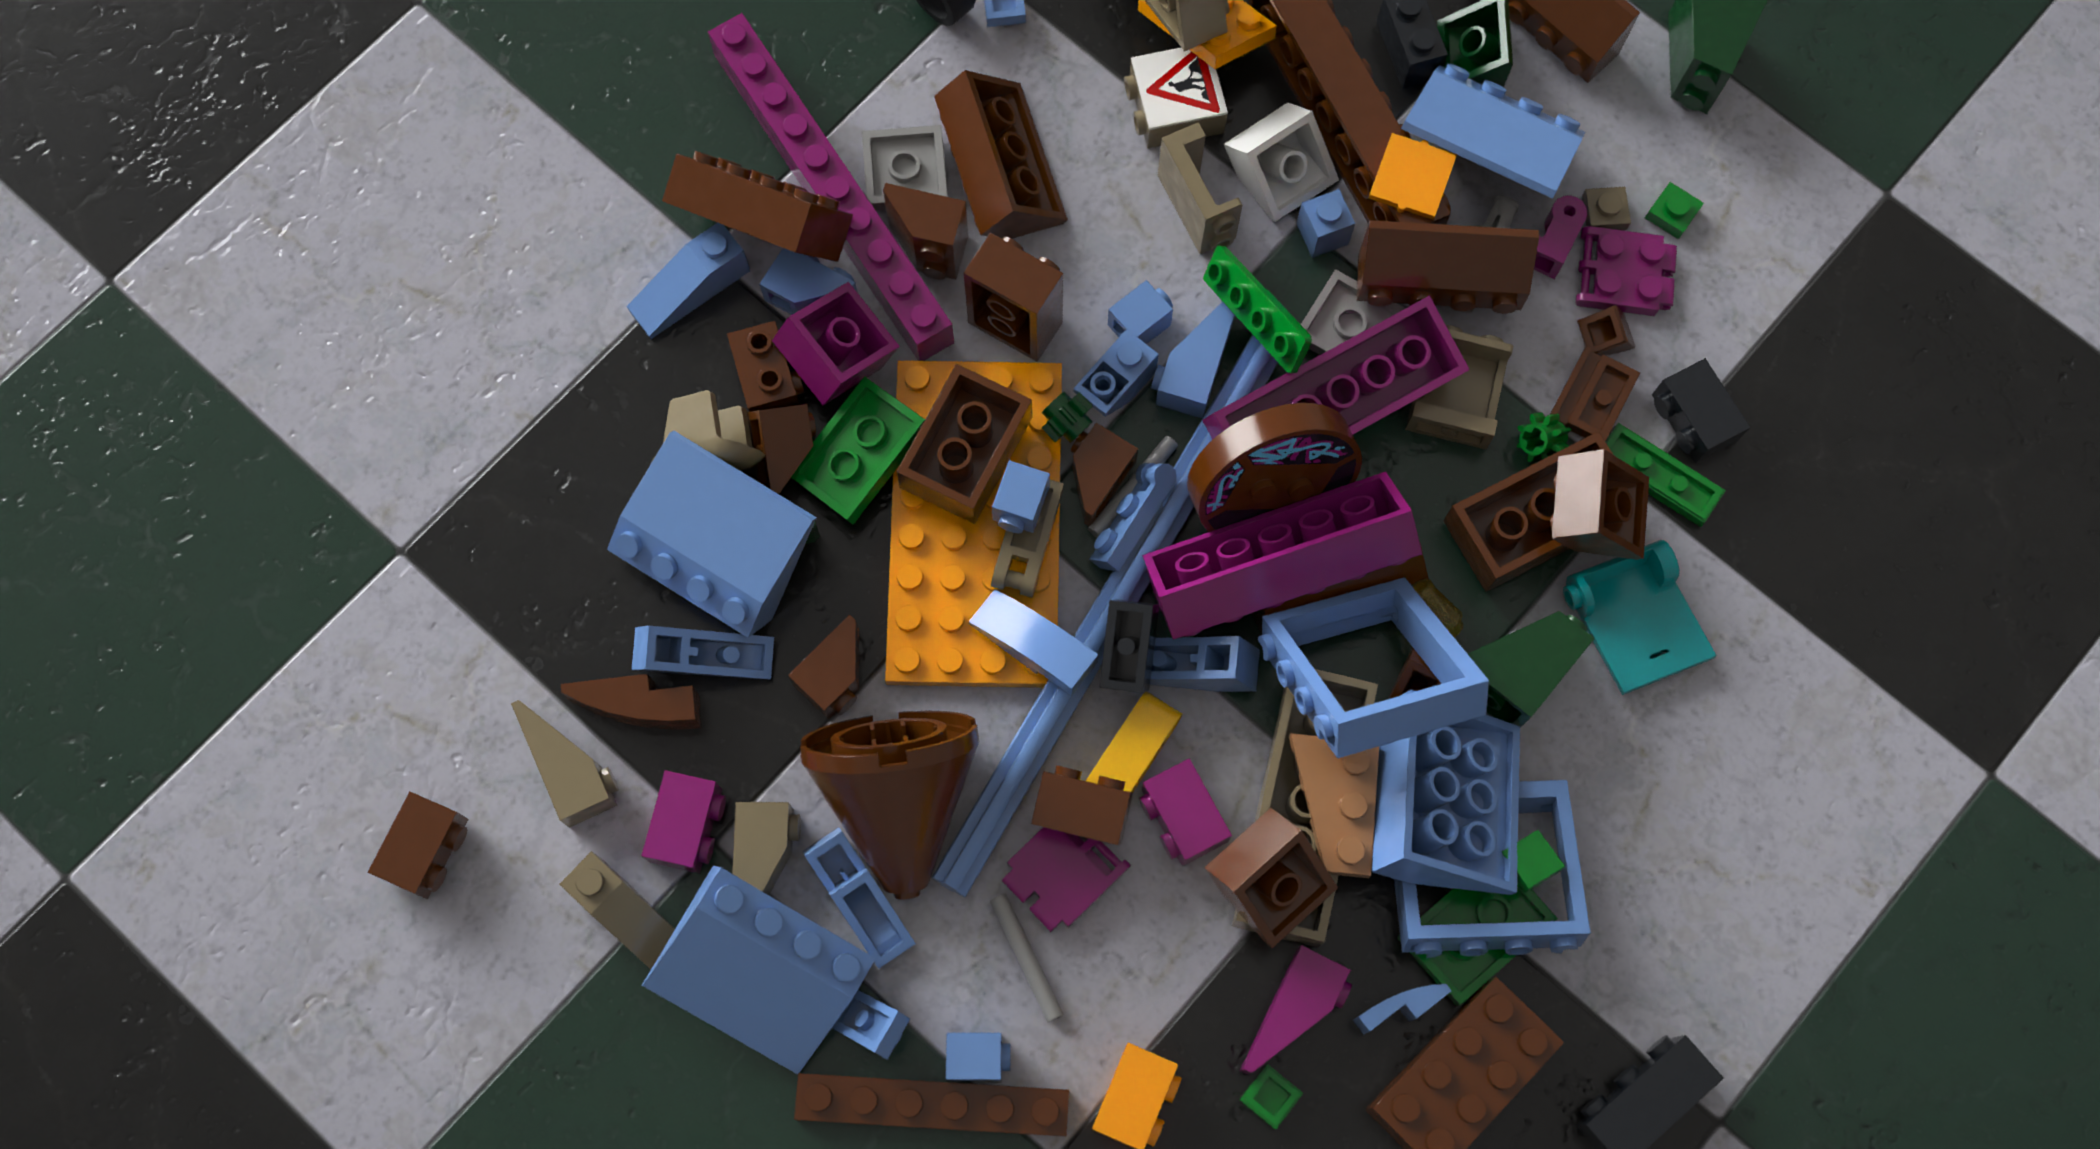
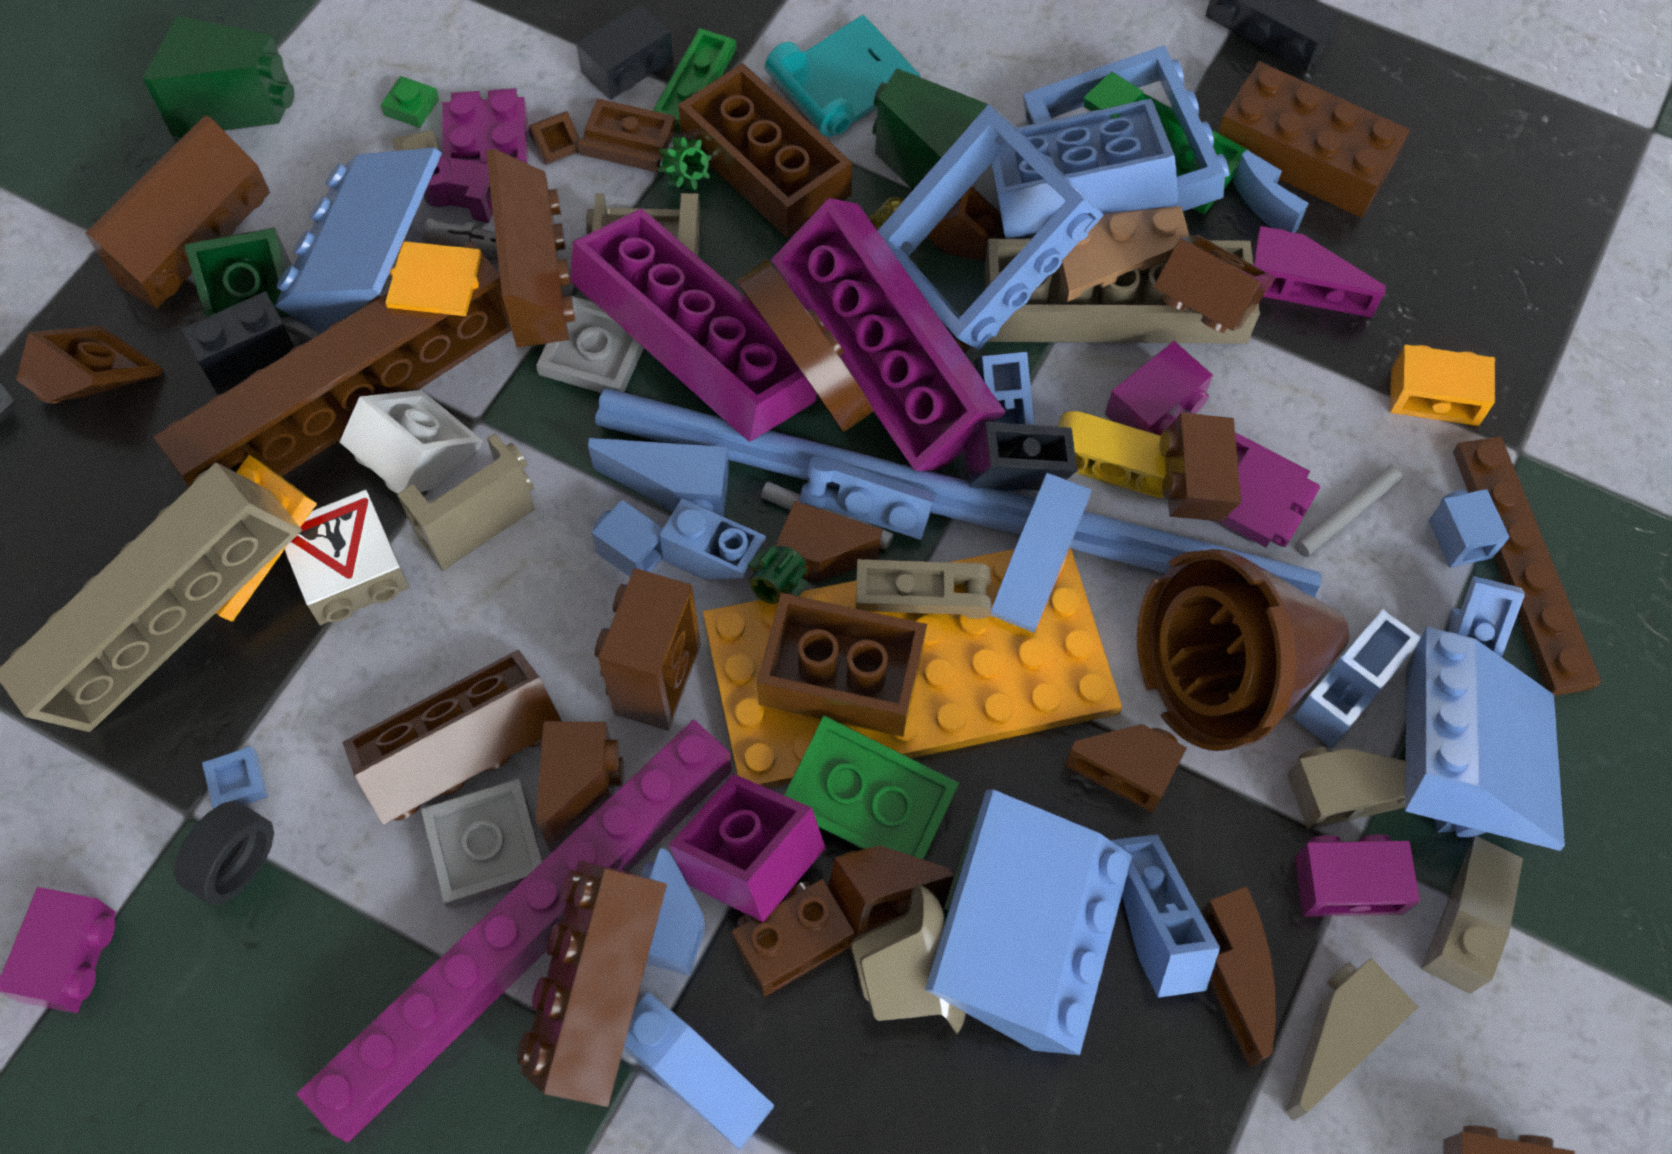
camera: 105 degrees left, 10 degrees down
(1020, 497) = (897, 584): medium blue brick -> none
(1258, 309) = (618, 396): green bracket -> none
(1271, 1096) = (1396, 281): green tile -> none
(1325, 223) = (483, 382): medium blue brick -> none
(1600, 505) = (763, 85): reddish brown slope -> none

